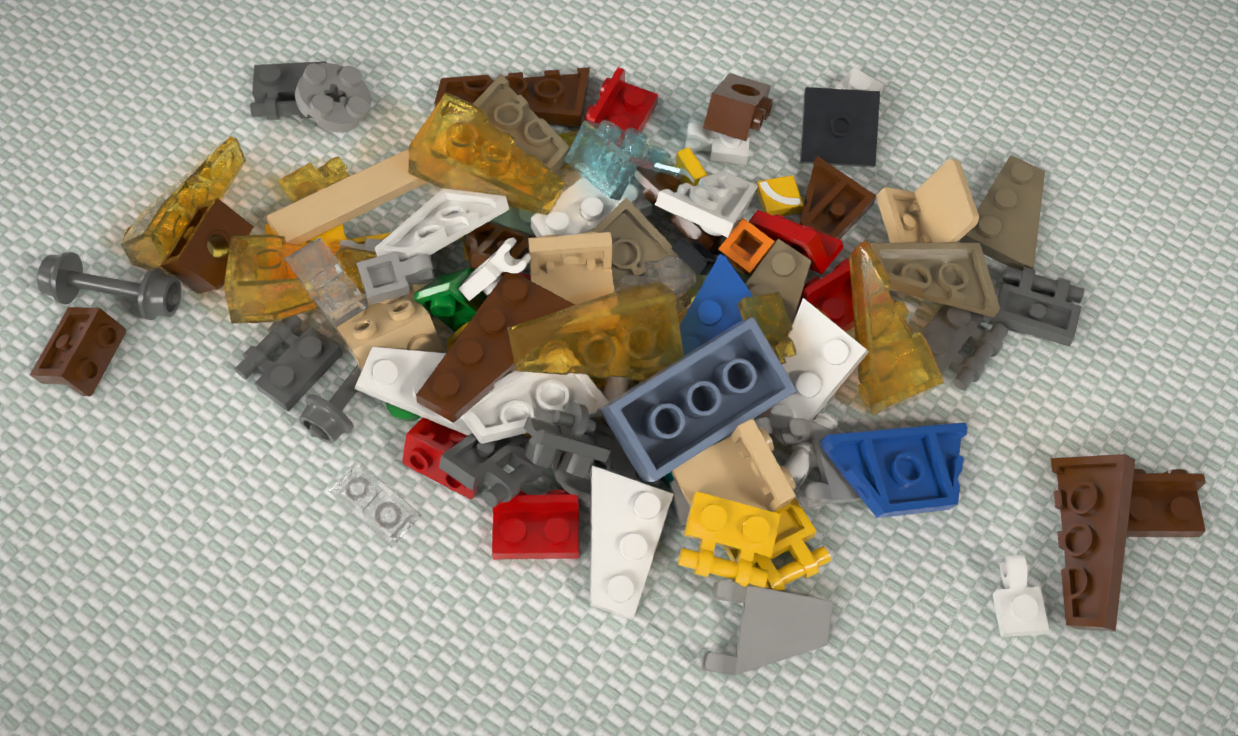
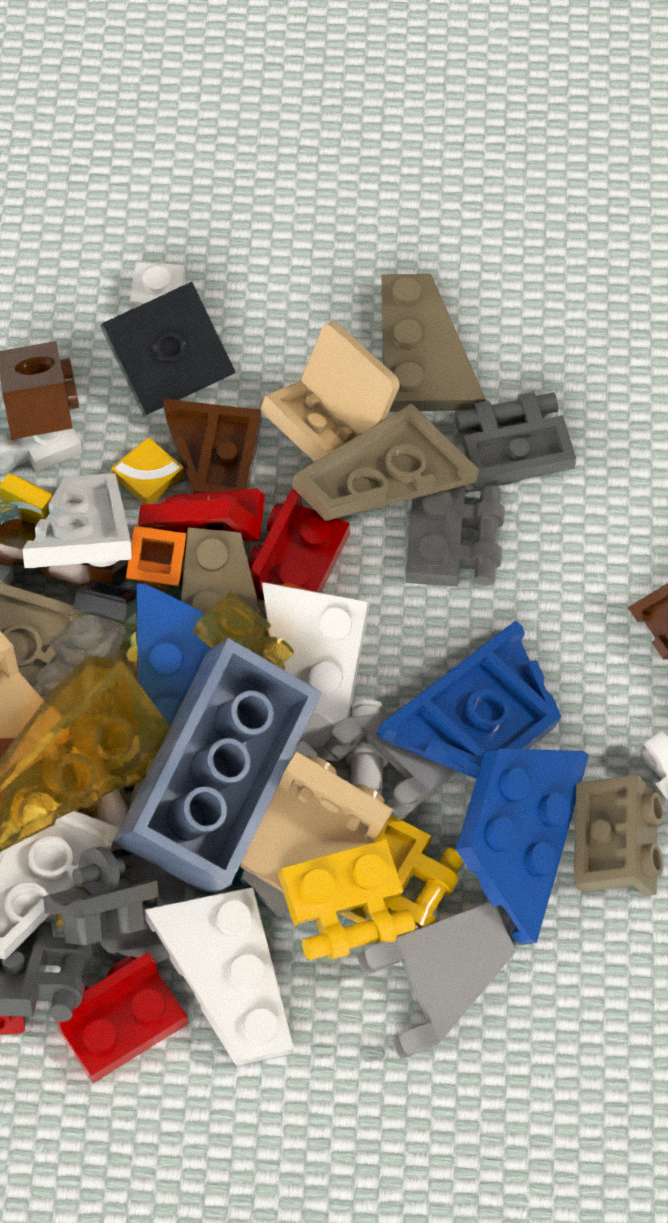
camera: 30 degrees left, 0 degrees up
(880, 563) = (520, 829): none -> blue wing
(898, 362) = (407, 594): clear yellow wedge -> none
(948, 608) = (617, 835): none -> dark tan bracket

